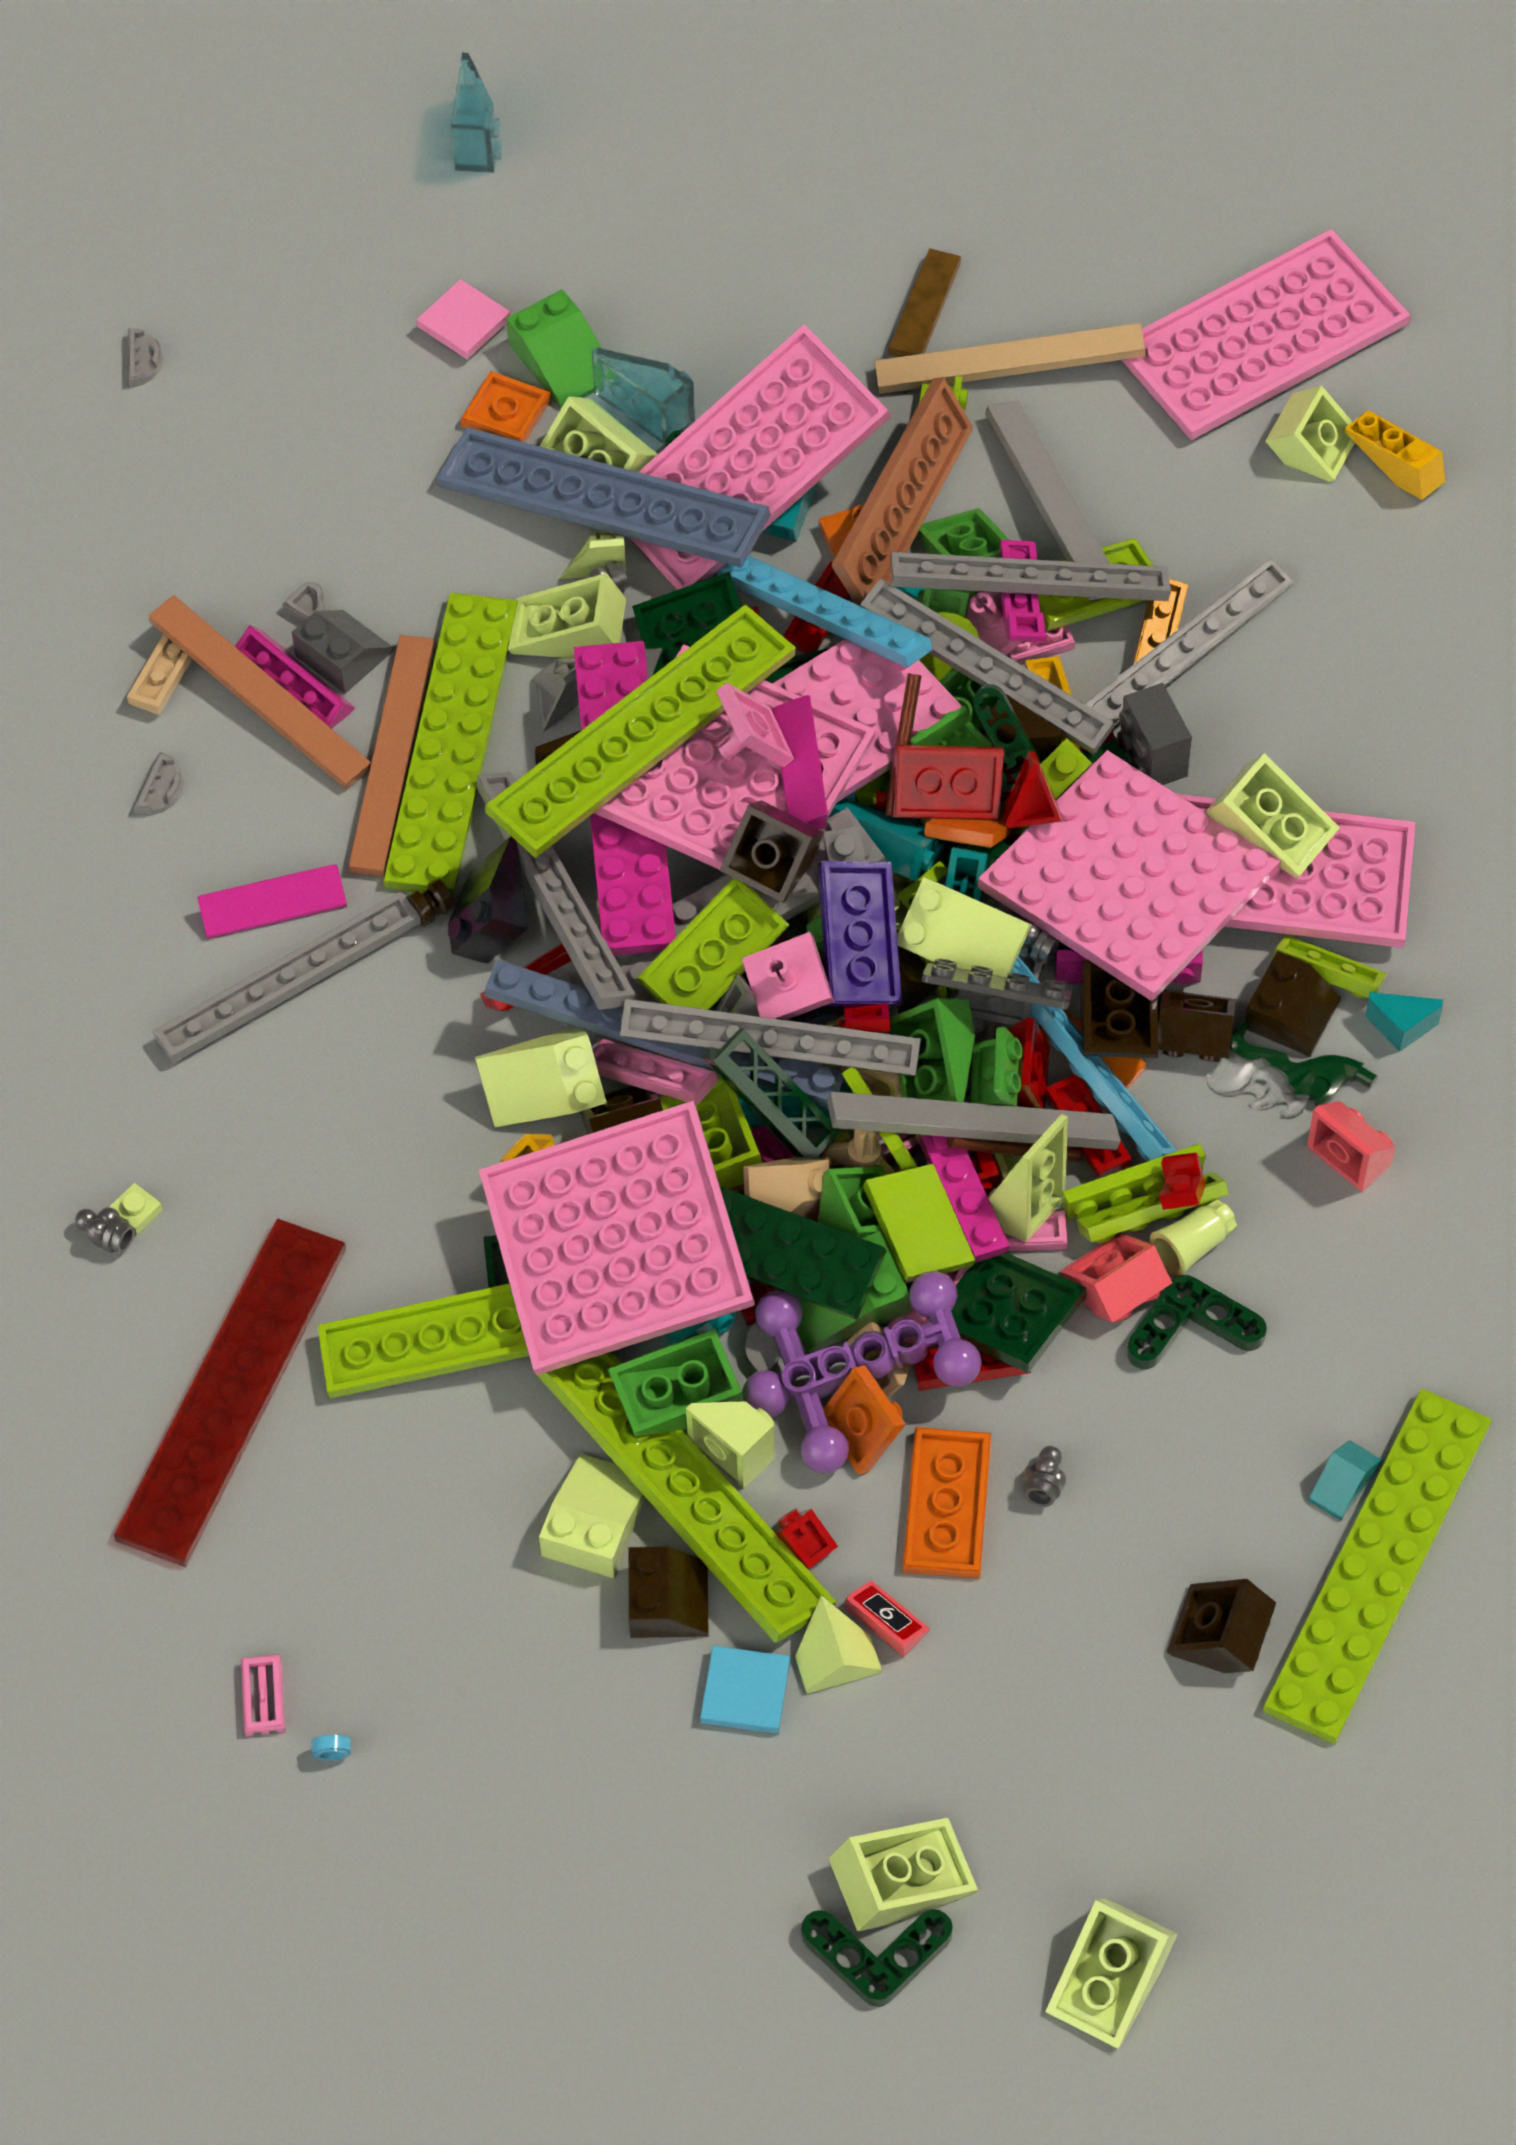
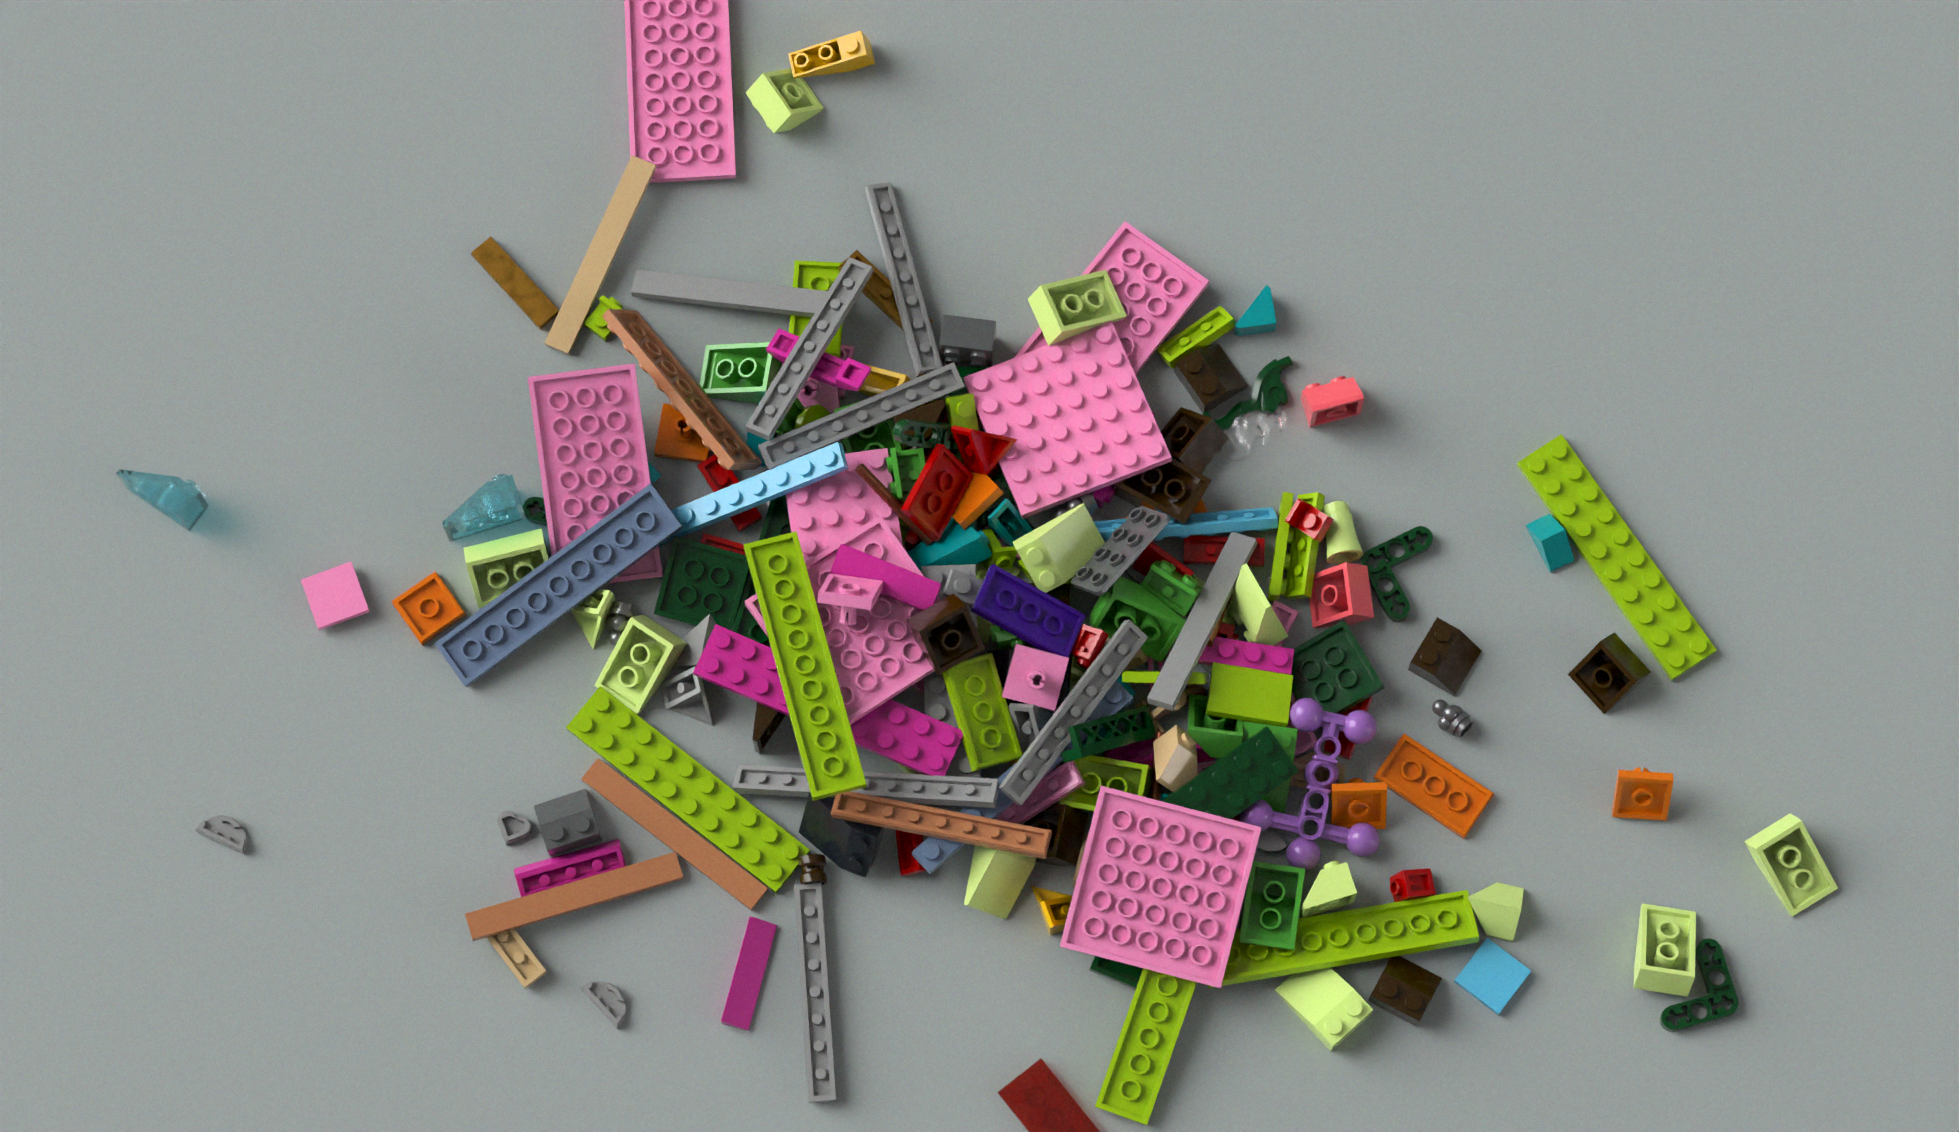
camera: 60 degrees left, 15 degrees up
(548, 970) = (942, 824): none -> nougat tile
(555, 346) = (404, 545): bright green slope -> none
(886, 1617) = (1491, 865): slope -> none
(1084, 1737) = (1642, 794): none -> orange tile
(1116, 1427) = (1445, 657): none -> dark brown slope

